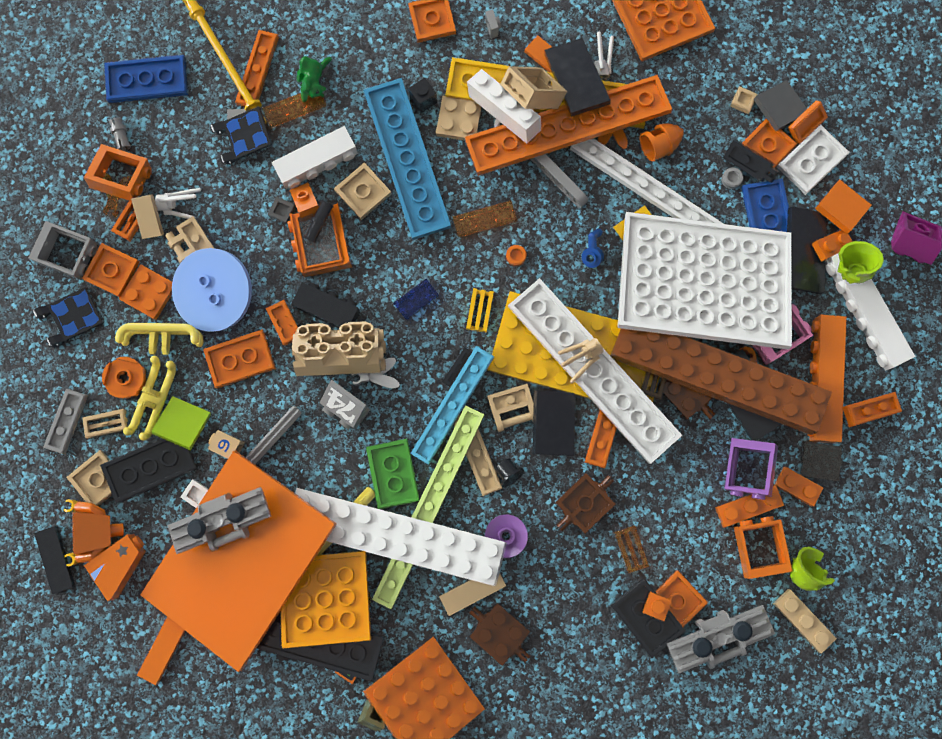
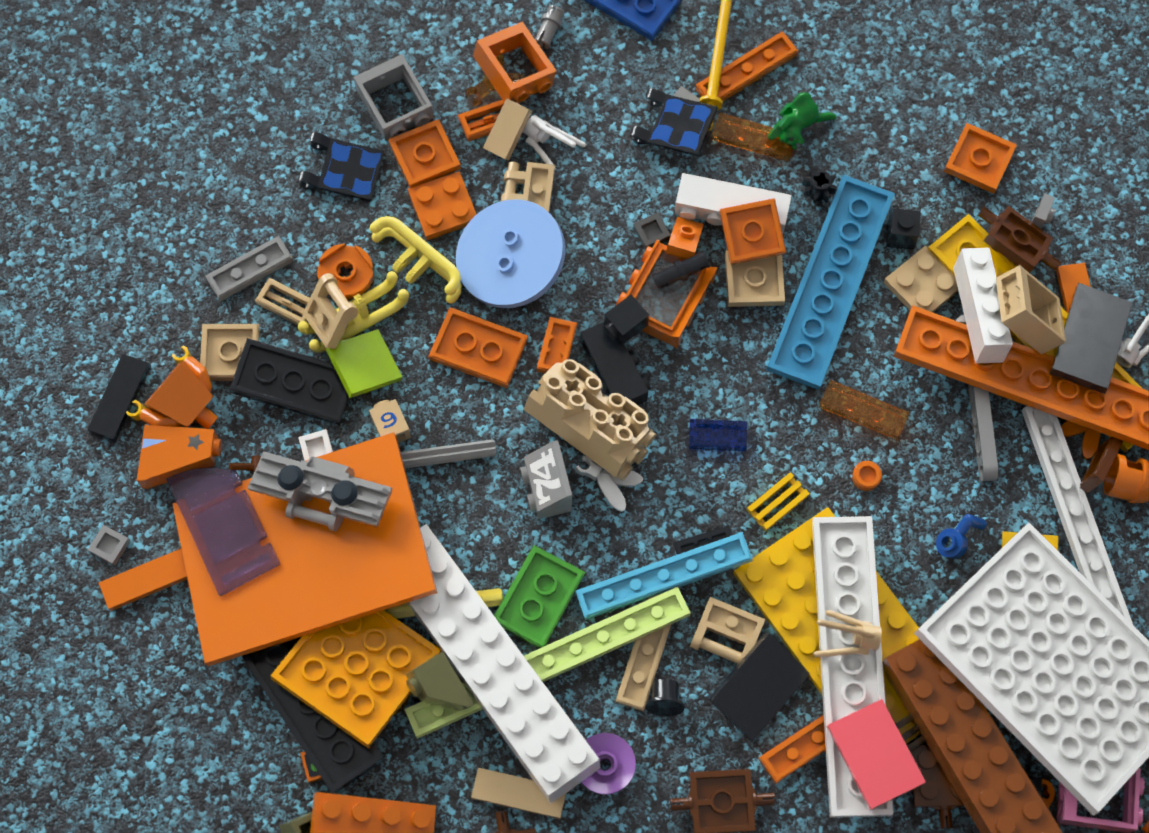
camera: 35 degrees right, 10 degrees down
(124, 648) = (109, 545): none -> light grey tile
(133, 416) = (323, 316): none -> tan plate
(165, 538) = (251, 467): none -> reddish brown hand
(181, 585) = (223, 526): none -> clear purple piece
(311, 277) = (625, 320): none -> black brick
(340, 165) = (752, 231): none -> orange tile
(355, 101) = (819, 193): none -> black gear
(379, 572) = (438, 684): none -> olive slope
(492, 50) = (1018, 239): none -> reddish brown plate
(637, 146) = (1100, 464): none -> reddish brown tile
(648, 410) = (876, 754): none -> coral tile

